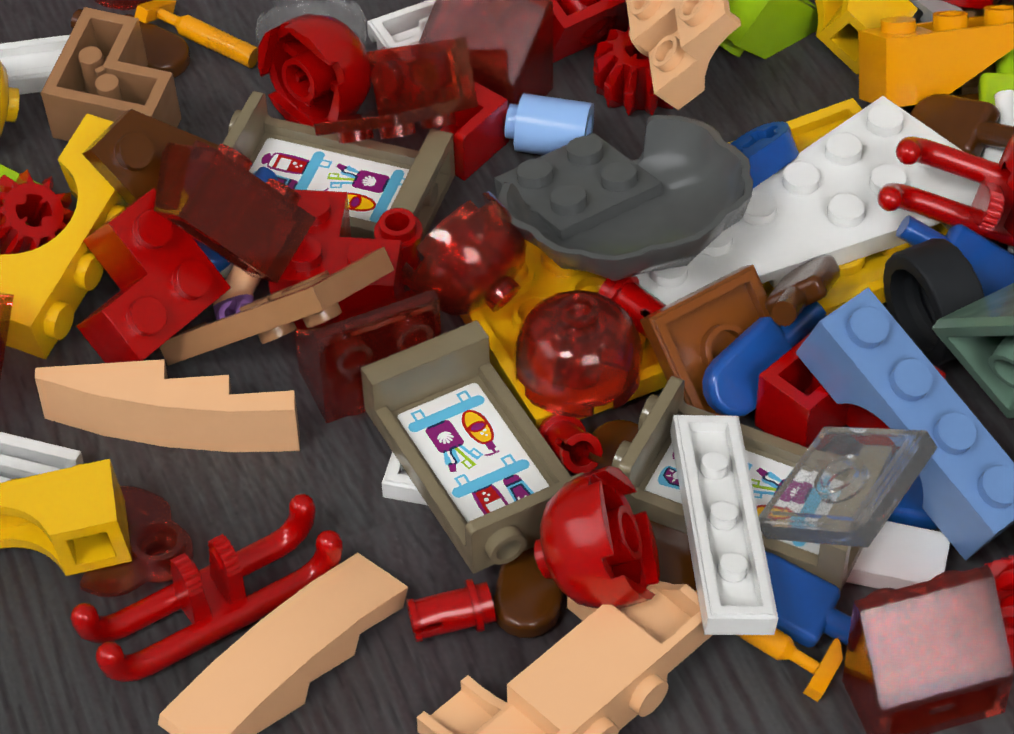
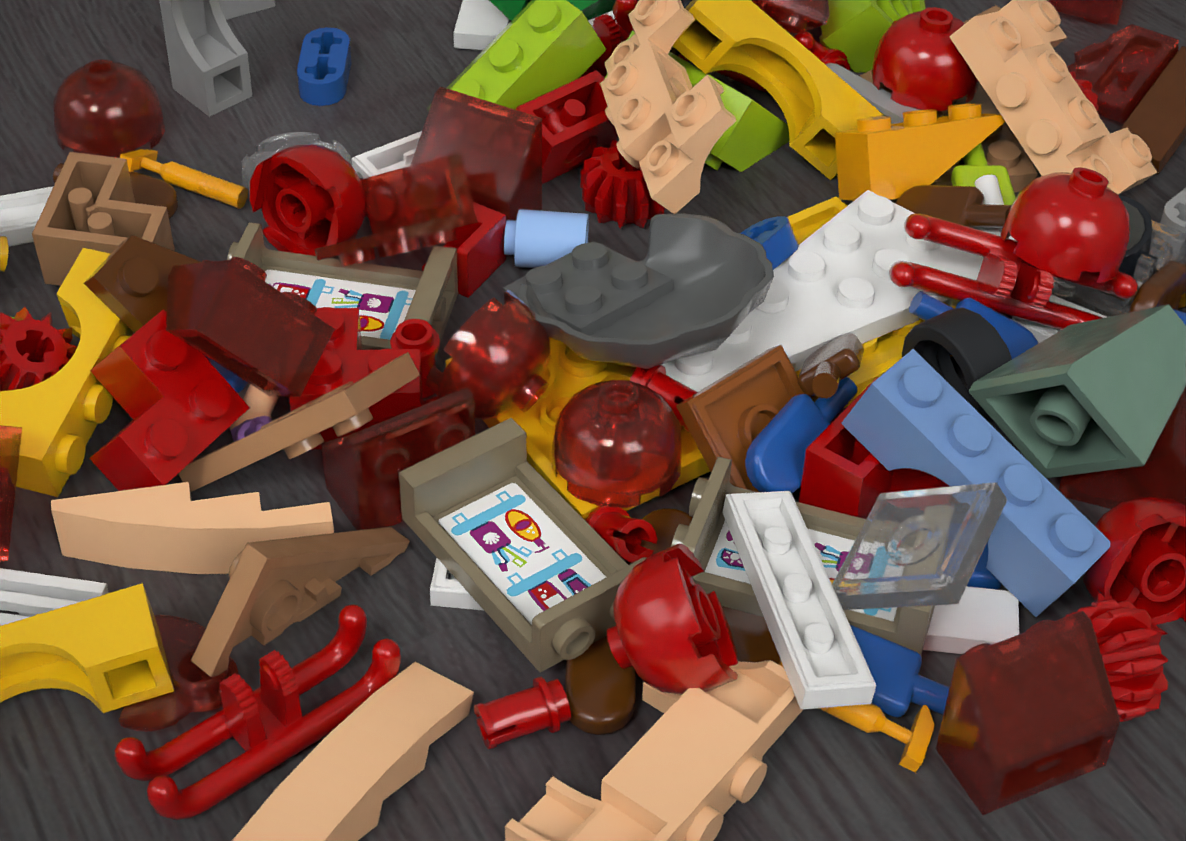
camera: 10 degrees left, 5 degrees down
(245, 467) = (285, 583): none -> medium nougat wing

